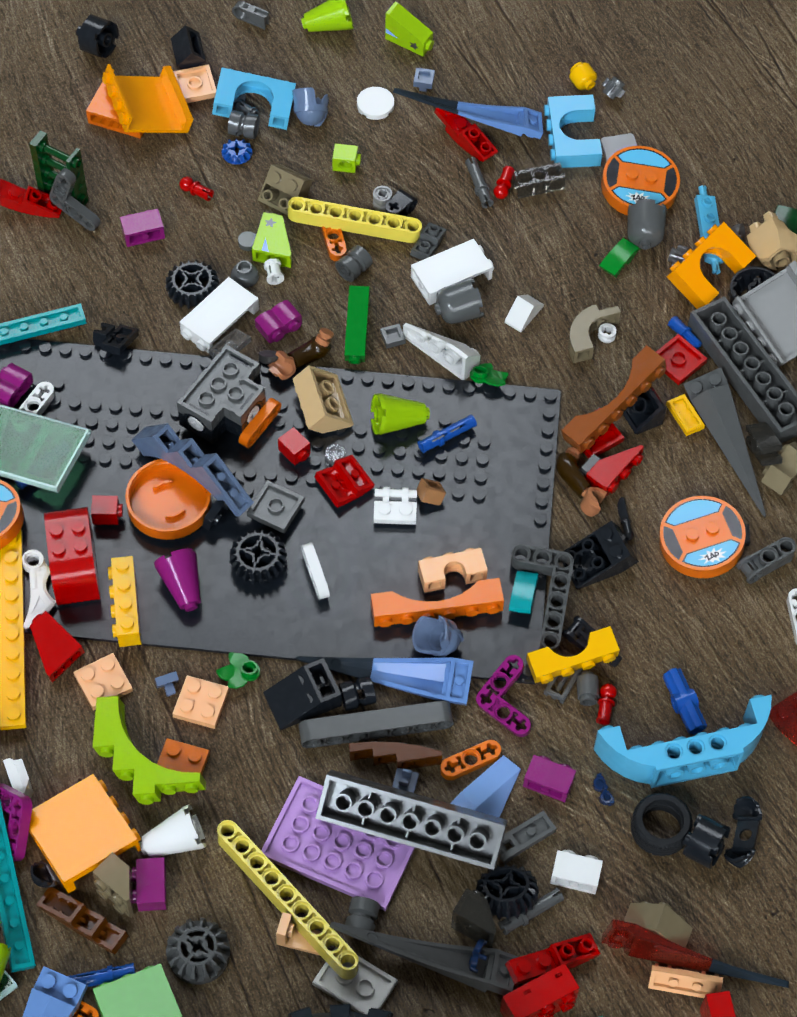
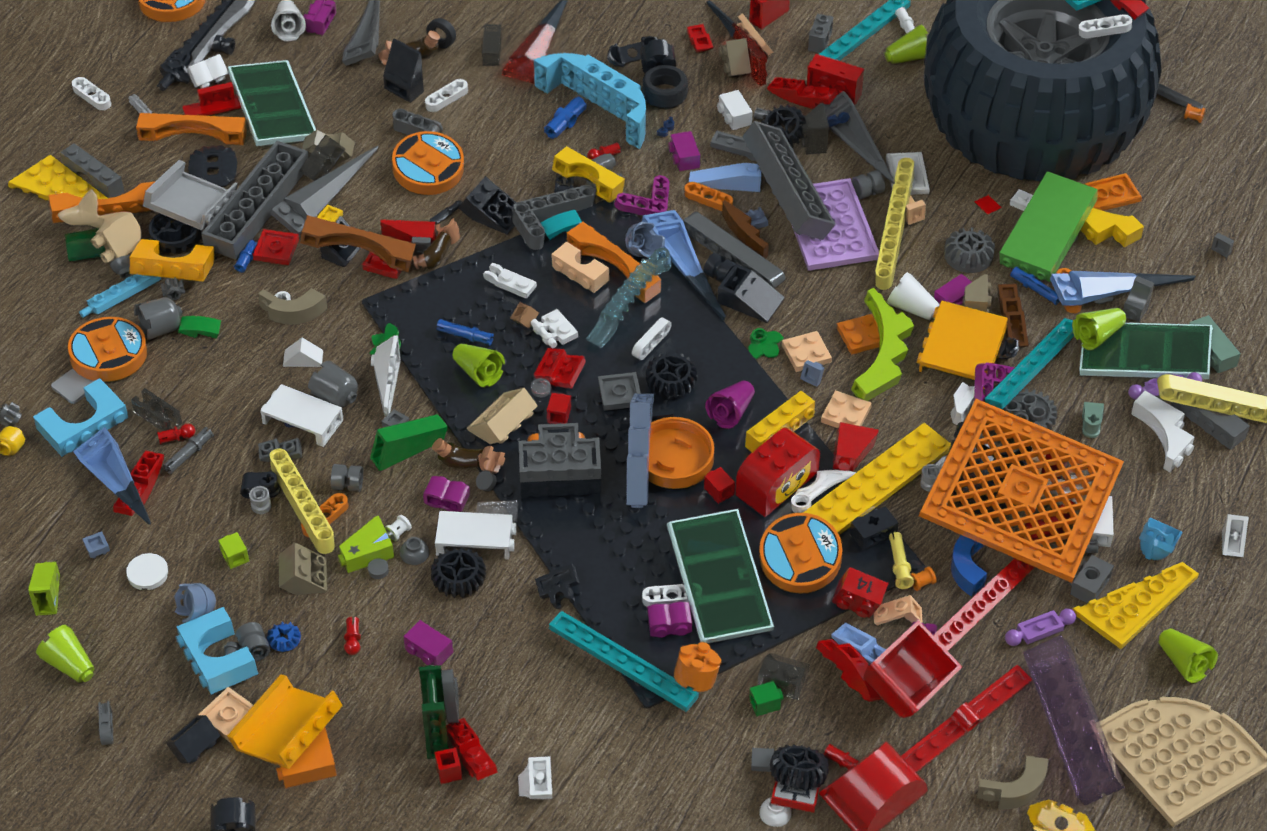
camera: 125 degrees left, 10 degrees down
(22, 173) = (448, 765): none -> red brick
(382, 589) = (608, 320): none -> clear light blue piece
(484, 508) = (509, 280): none -> white hinge
(723, 925) = (699, 38): none -> red slope

